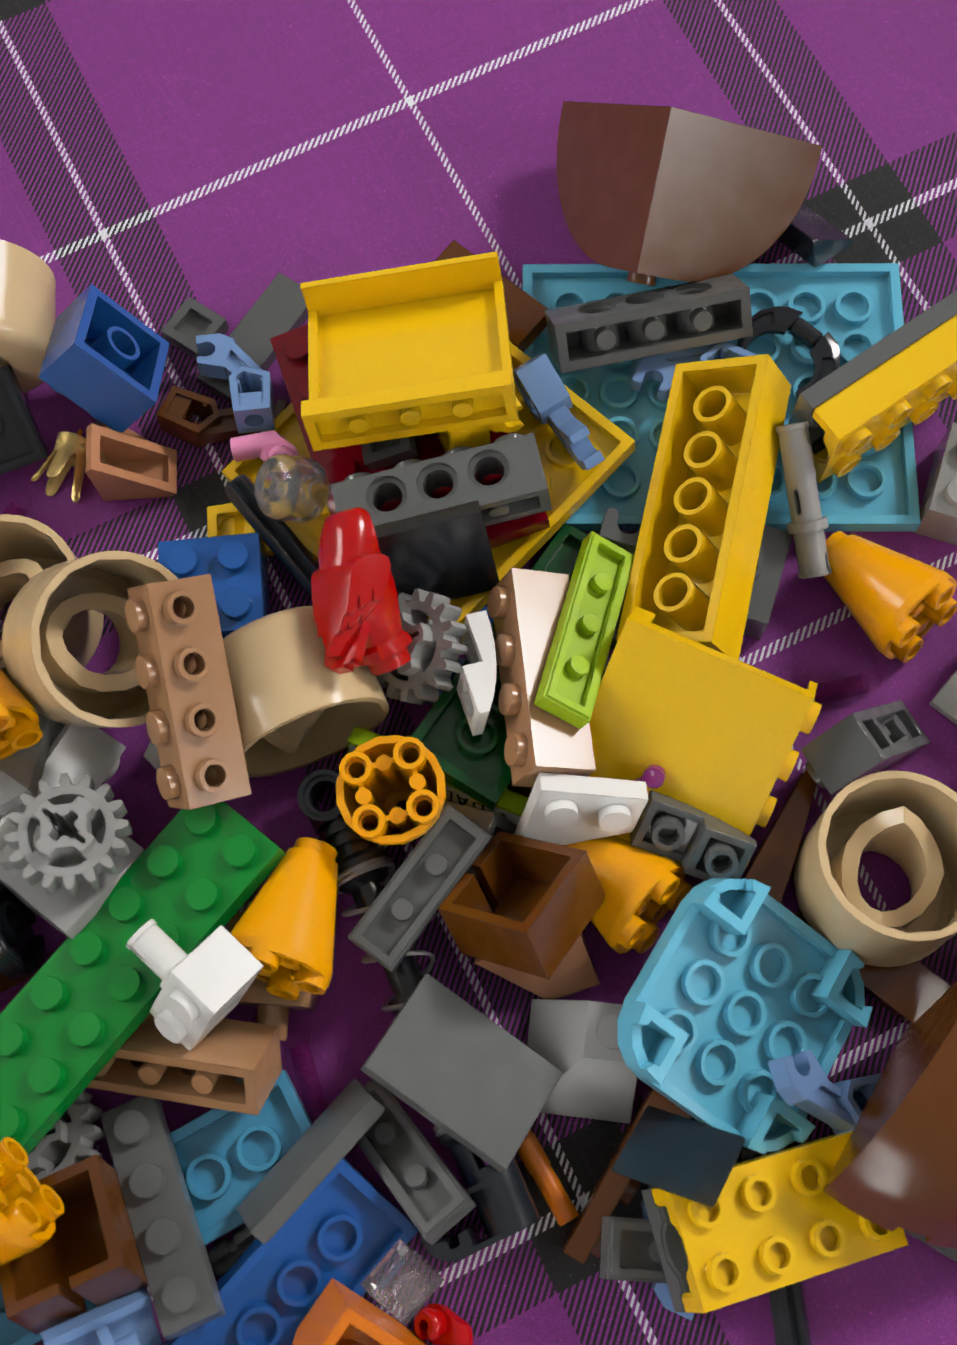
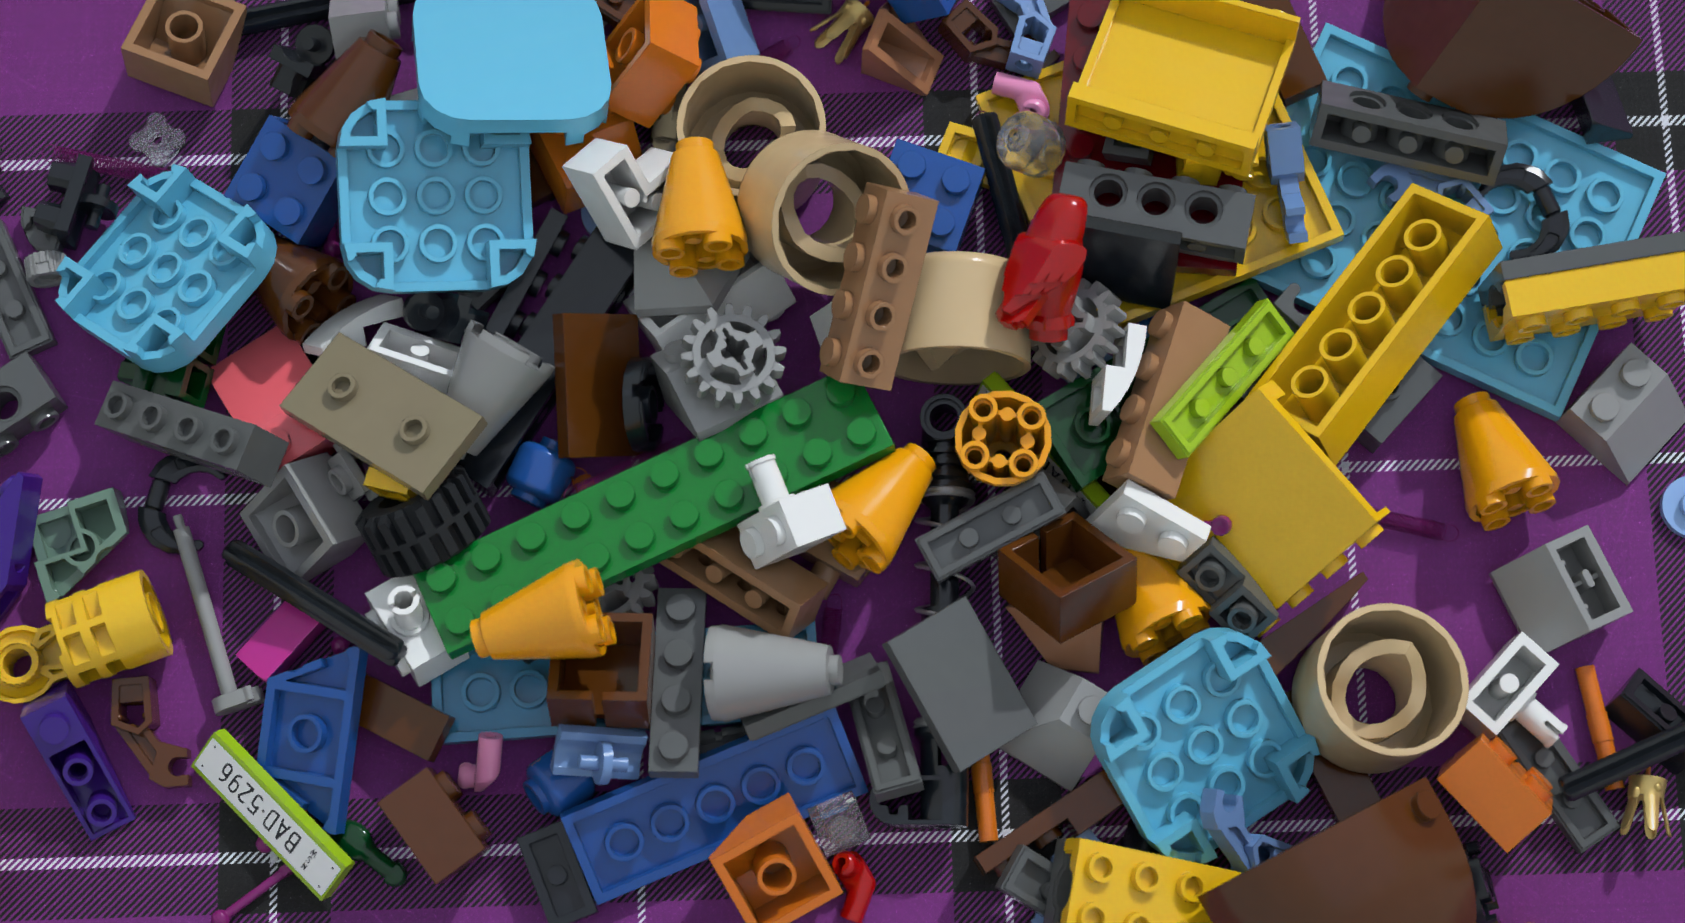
camera: 20 degrees right, 5 degrees up
(243, 1162) = (764, 671): none -> light grey cone
(679, 1156) = (1099, 822): black sticker -> none
(803, 500) = (1463, 352): light grey pin -> none
(863, 745) = (1412, 580): dark grey slope -> none

